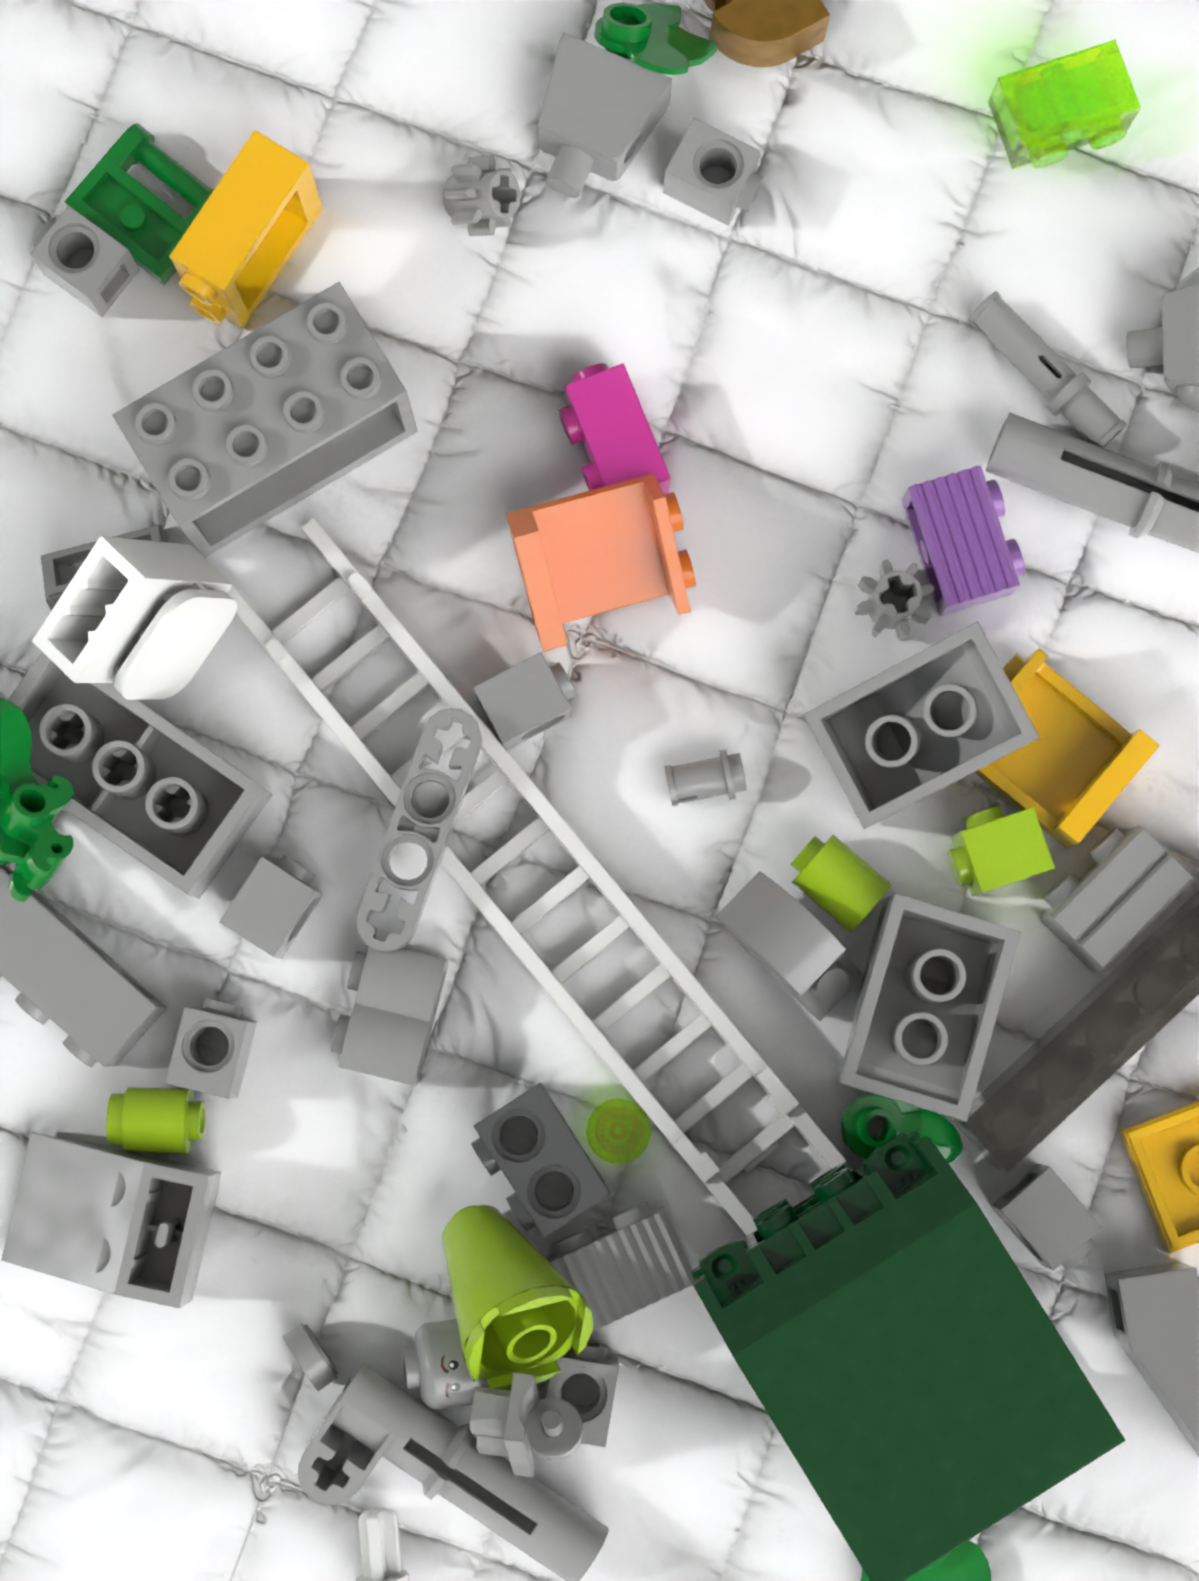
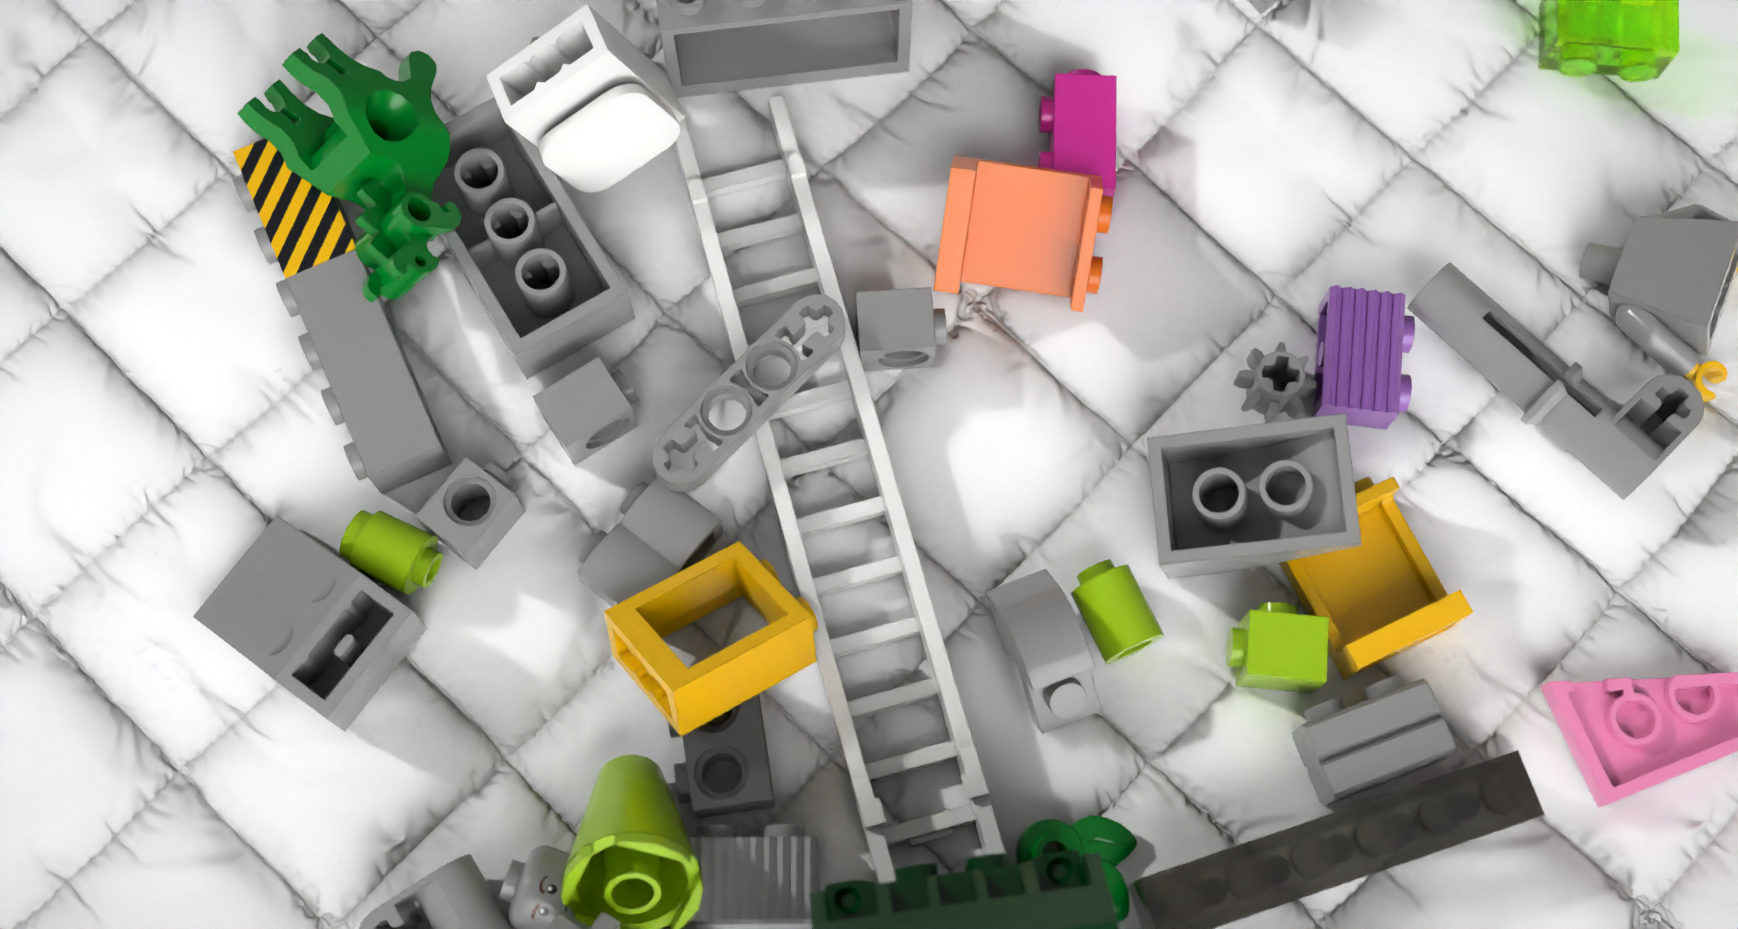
camera: 25 degrees right, 10 degrees down
(311, 1356) = (426, 829): light grey tile -> none
(531, 1102) = (730, 676): none -> yellow window
(618, 1131) = (807, 752): clear neon green tile -> none
(706, 778) = (1031, 468): light grey pin -> none
(928, 1006) = (1151, 755): light grey slope -> none
(1047, 371) = (1509, 267): light grey pin -> none

